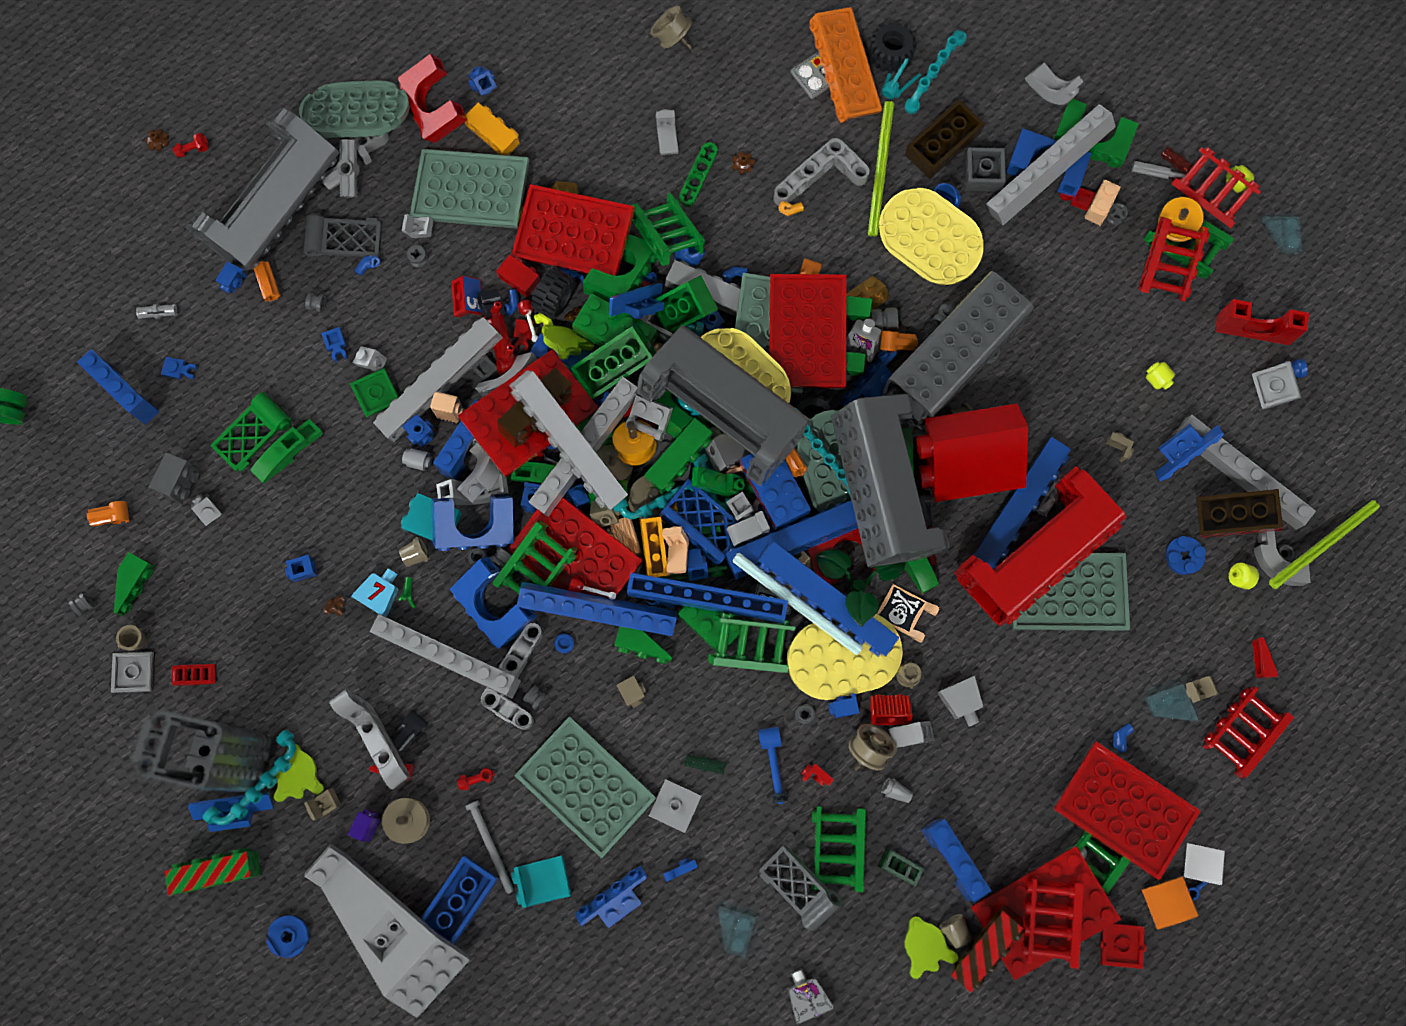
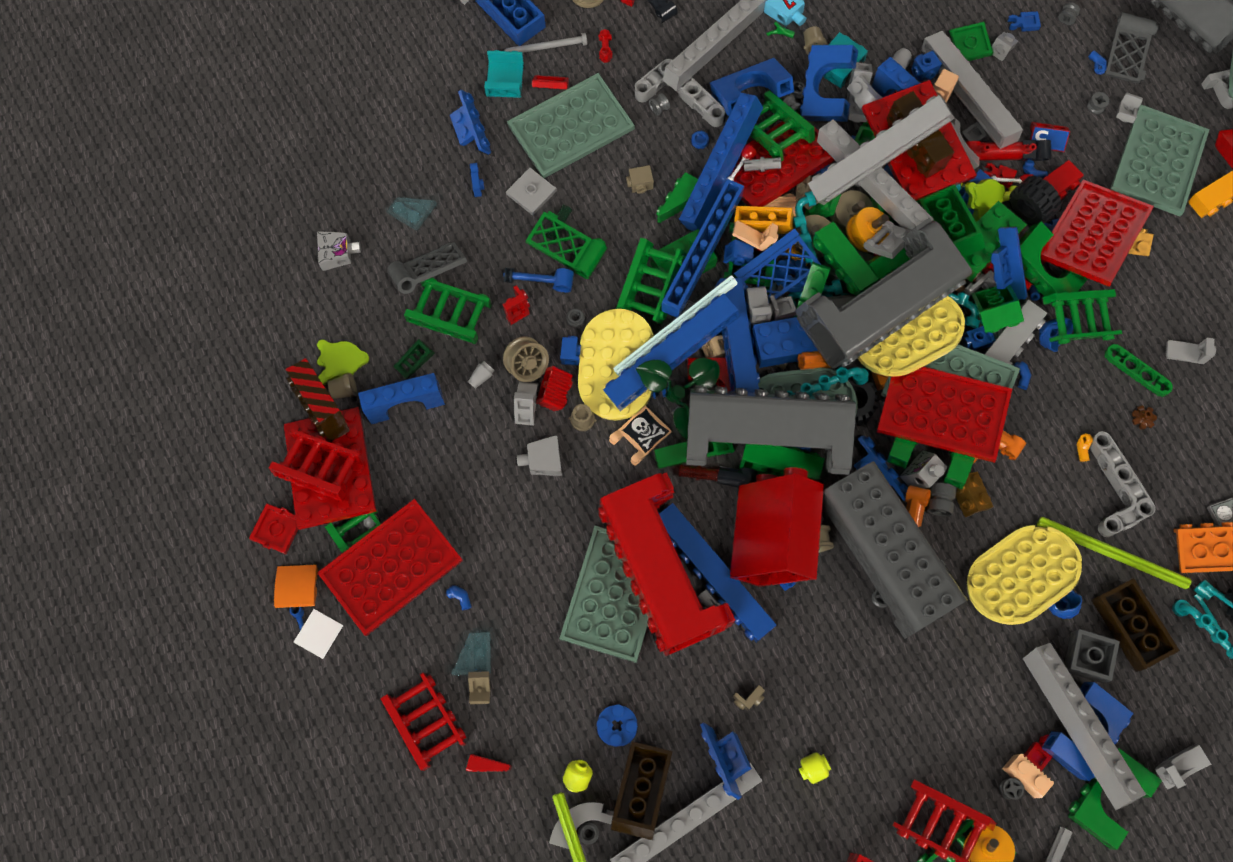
camera: 110 degrees right, 5 degrees down
(339, 175) = (1197, 59): light grey piece -> none
(538, 826) = (550, 82): none -> red tile
(587, 566) = (762, 164): none -> light grey pin
(734, 720) = (589, 254): none -> green piece

